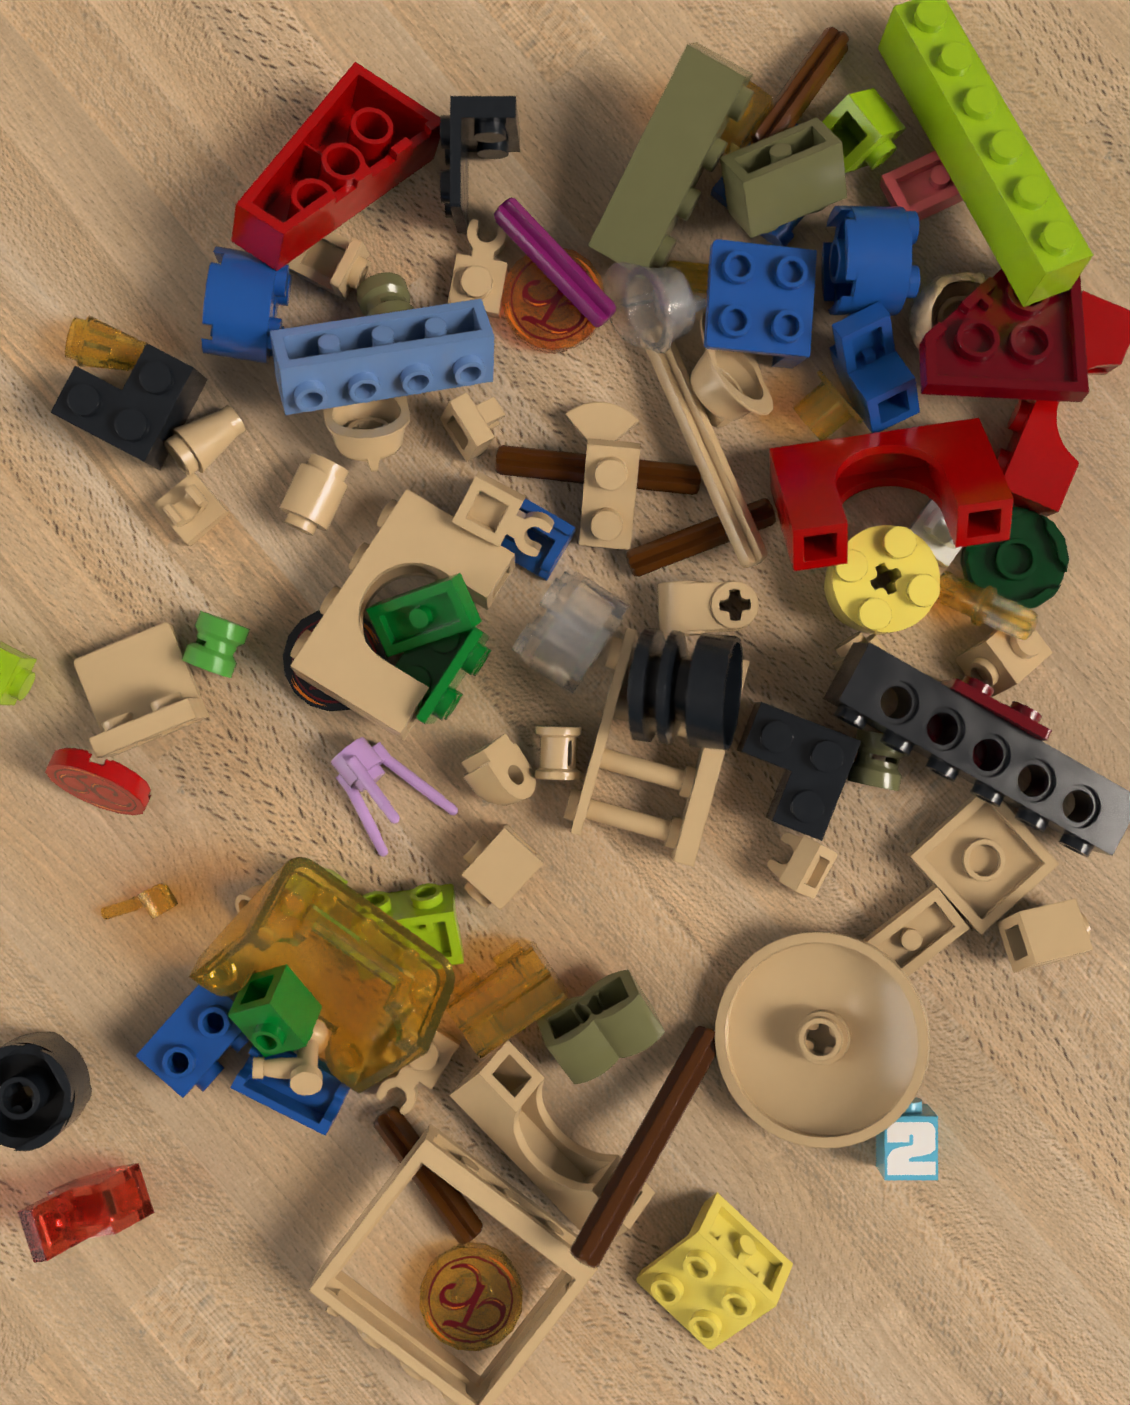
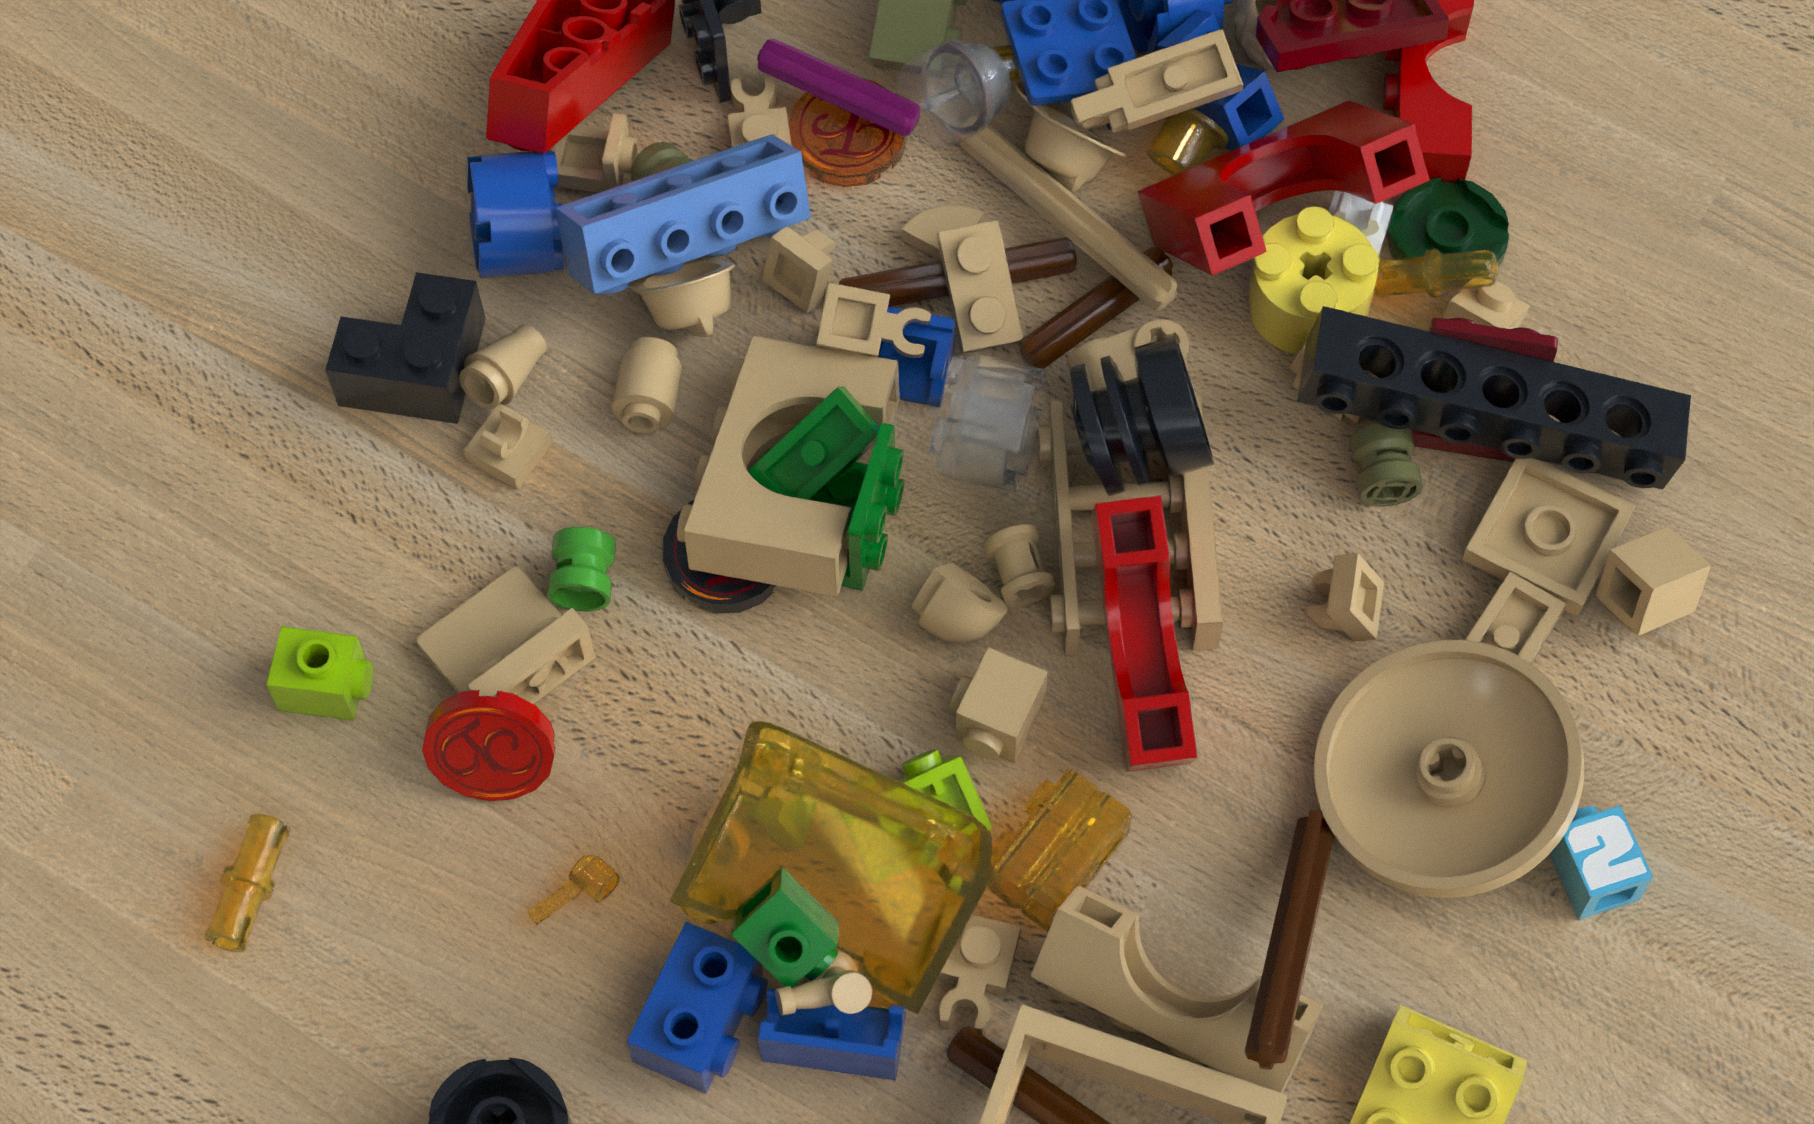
camera: 15 degrees left, 25 degrees down
(101, 345) = (360, 302): clear yellow cone -> none
(361, 769) = (800, 650): lavender plant -> none
(600, 1027) = (1185, 840): olive brick -> none
(625, 864) = (1141, 634): none -> red arch
(813, 764) = (1301, 478): black brick -> none
(820, 370) = (1160, 85): none -> tan hinge

